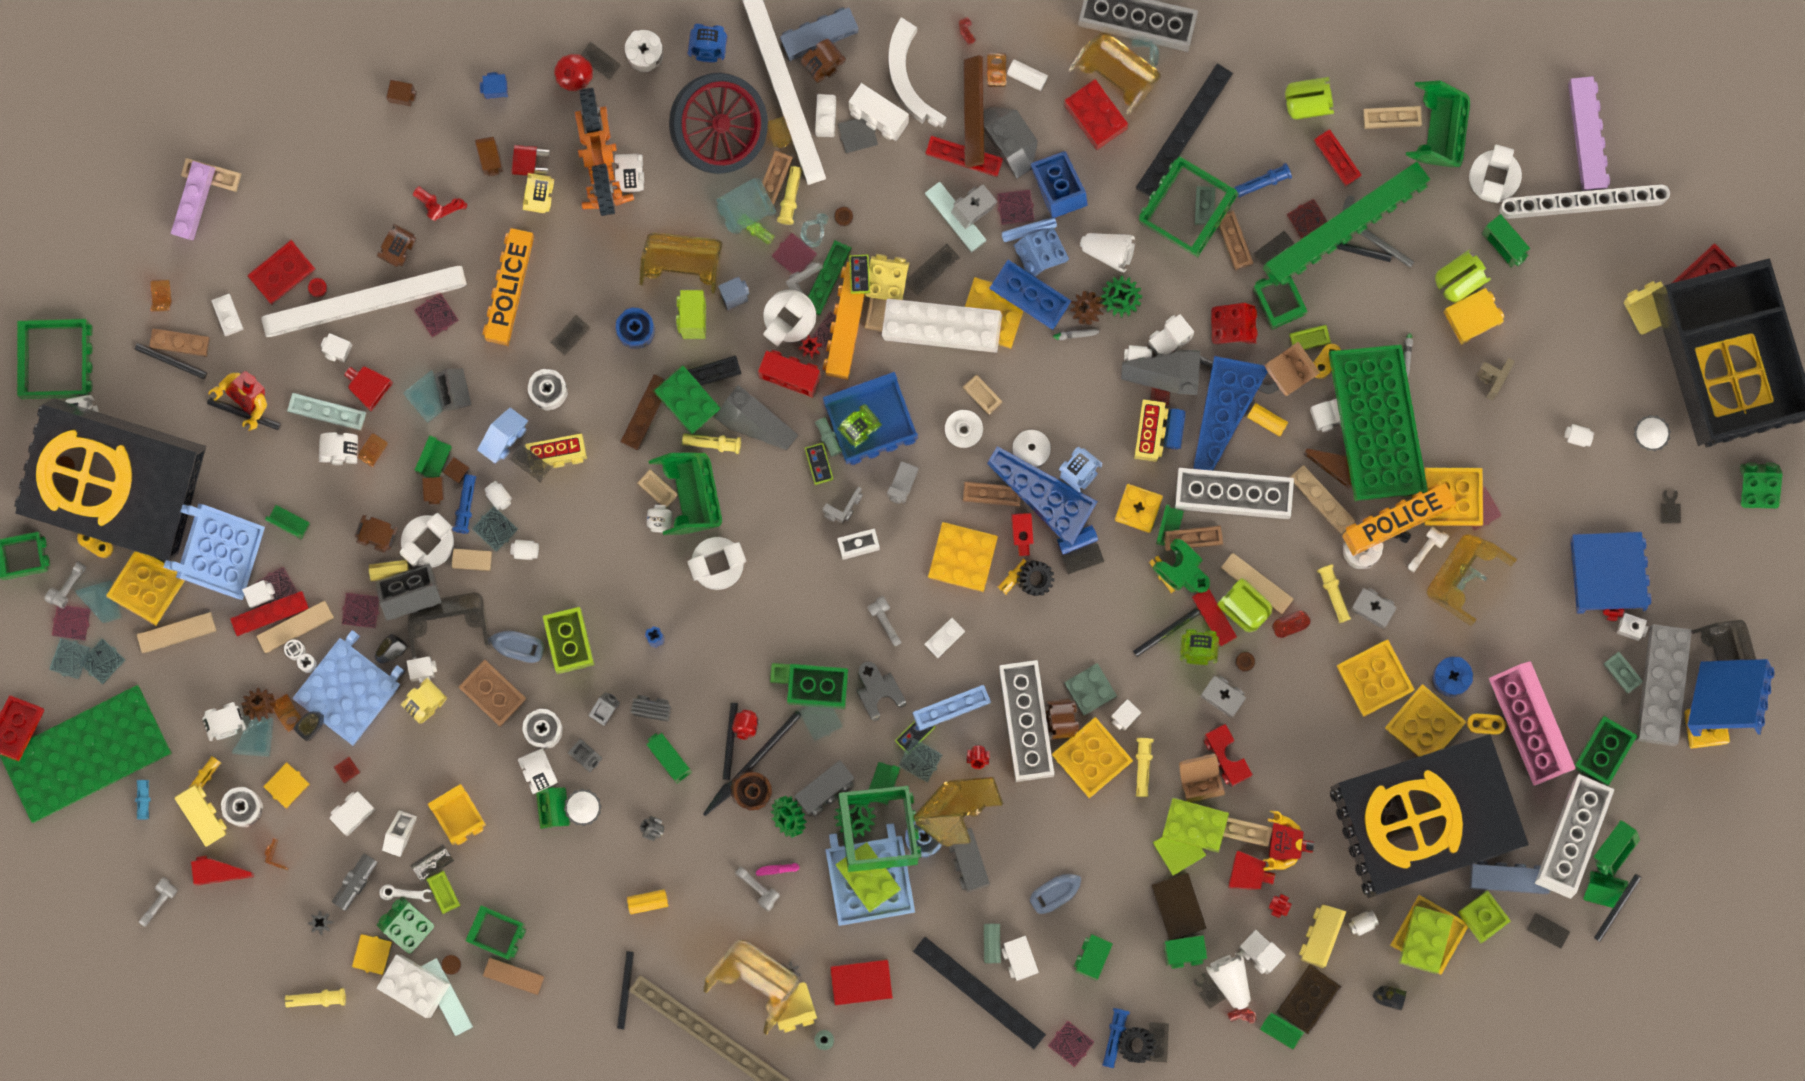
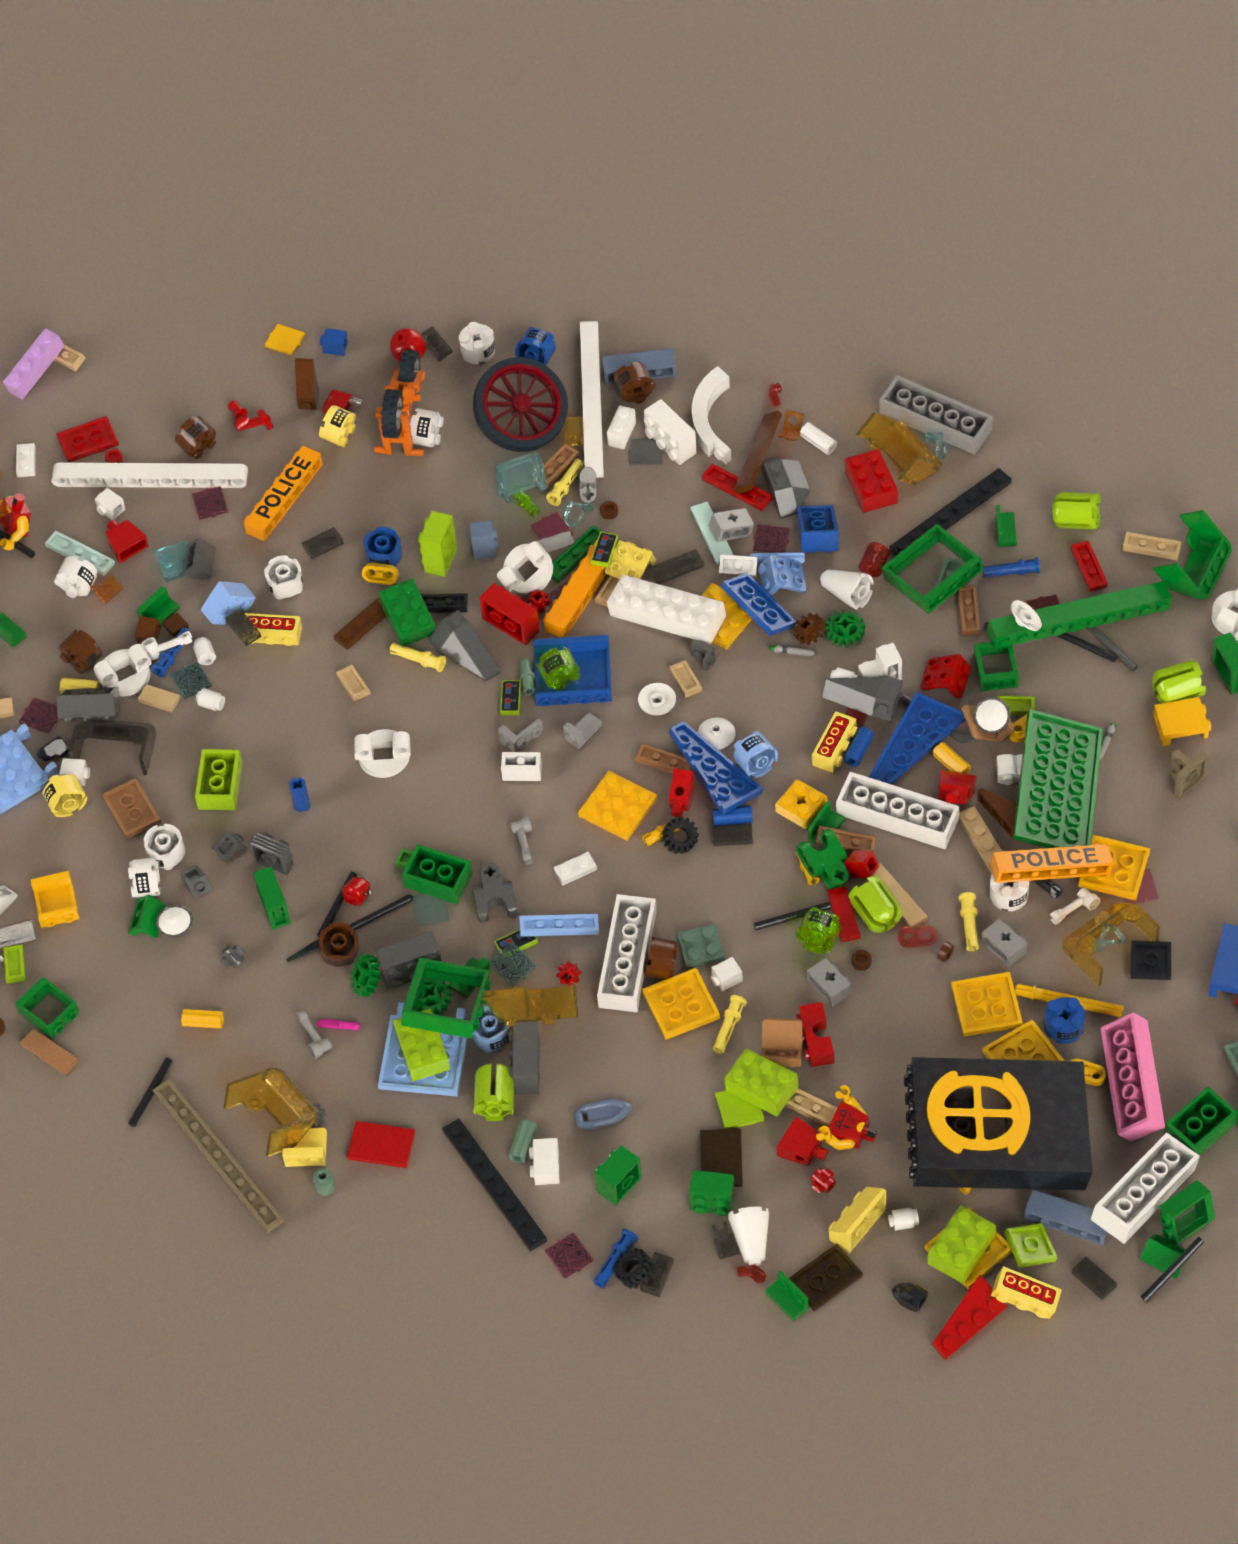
camera: 20 degrees right, 25 degrees down
(401, 93) = (250, 329): reddish brown brick -> none
(440, 93) = (285, 339): none -> yellow piece
(448, 509) = (153, 649): none -> white brick
(518, 646) = (171, 776): sand blue piece -> none
(641, 356) = (381, 573): none -> yellow plate
(659, 518) = (343, 704): white head -> none
(682, 256) = (424, 497): clear yellow windscreen -> none
(695, 491) = (388, 689): green windscreen -> none
(813, 187) = (588, 493): none -> light grey piece
(942, 907) = (489, 1105): none -> lime cylinder
(990, 362) = (703, 652): none -> dark grey bracket
(994, 250) = (738, 565): none -> white plate
(1126, 211) = (874, 558): none -> clear red wheel
(1217, 562) = (861, 864): none -> red brick
(1243, 134) = (1005, 528): none -> green panel
(1261, 952) = (791, 1217): white brick -> none
(1281, 453) = (956, 787): none -> red torso
(1297, 368) = (991, 715): none -> white piece
(1302, 252) = (1025, 615): none -> white dish
(1322, 633) = (945, 952): none -> reddish brown tile
(1445, 652) = (1088, 1004): none -> yellow axle
(1452, 1000) = (968, 1318): none -> red wing
(1494, 969) = (1026, 1293): none -> light yellow brick
(1513, 588) = (1150, 960): none -> black plate

